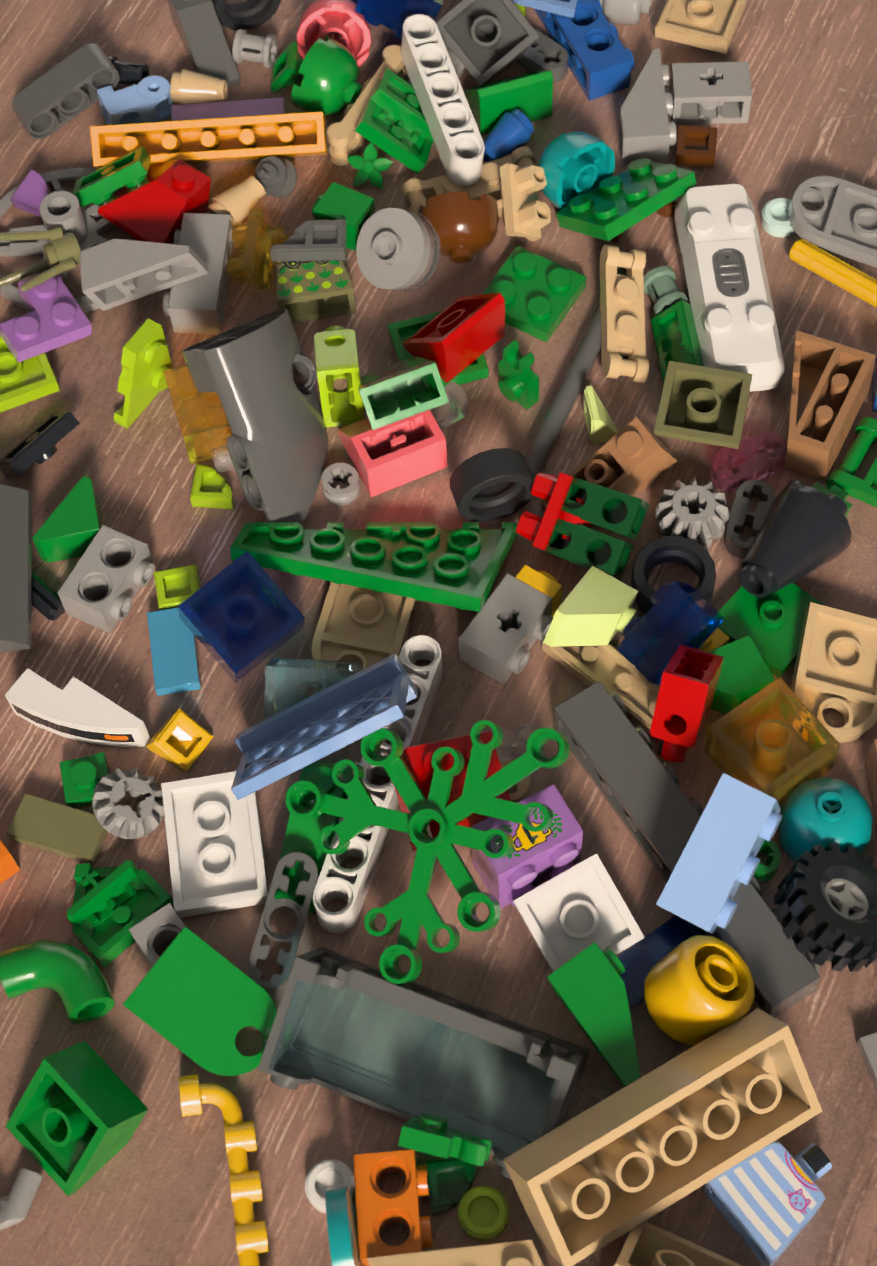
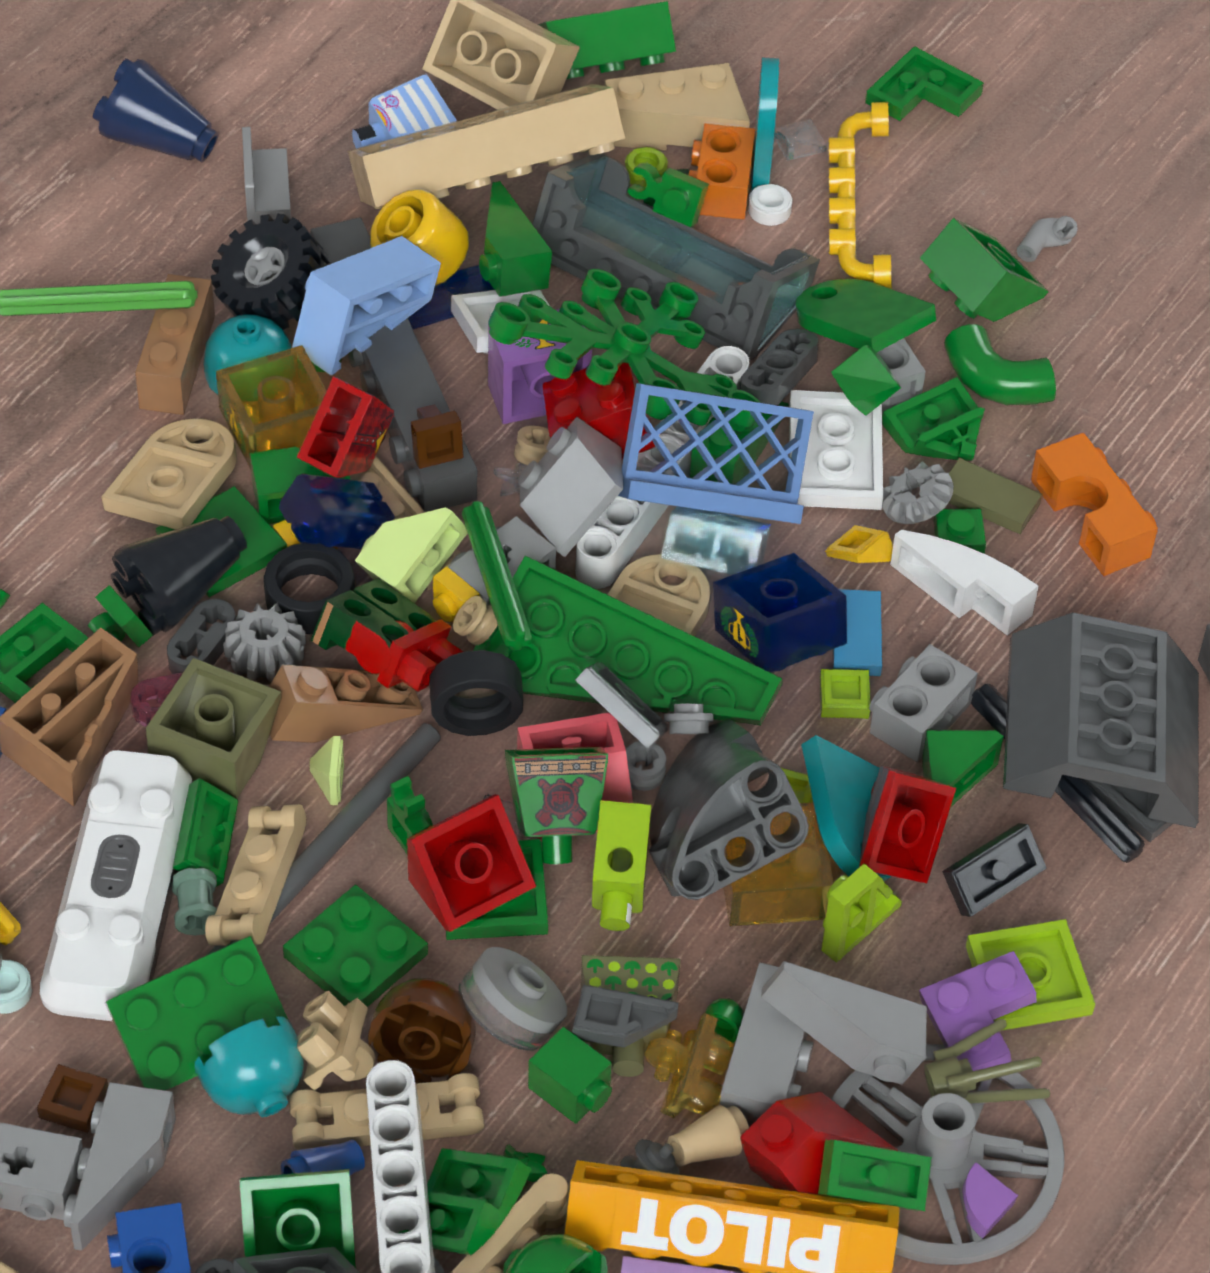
camera: 175 degrees left, 10 degrees down
(115, 443) = (904, 824): none -> red slope
(156, 453) = (841, 797): none -> teal tile
(189, 893) = (865, 379): none -> green slope
(240, 292) = (729, 1017): none -> green hinge
(304, 497) = (688, 719): none -> light grey plate
(362, 480) = (623, 704): none -> tile
(452, 688) = (571, 484): none -> light grey slope
(502, 579) = (496, 576): none -> green axle
(510, 549) = (475, 620): none -> tan bush
(601, 709) = (436, 437): none -> reddish brown tile

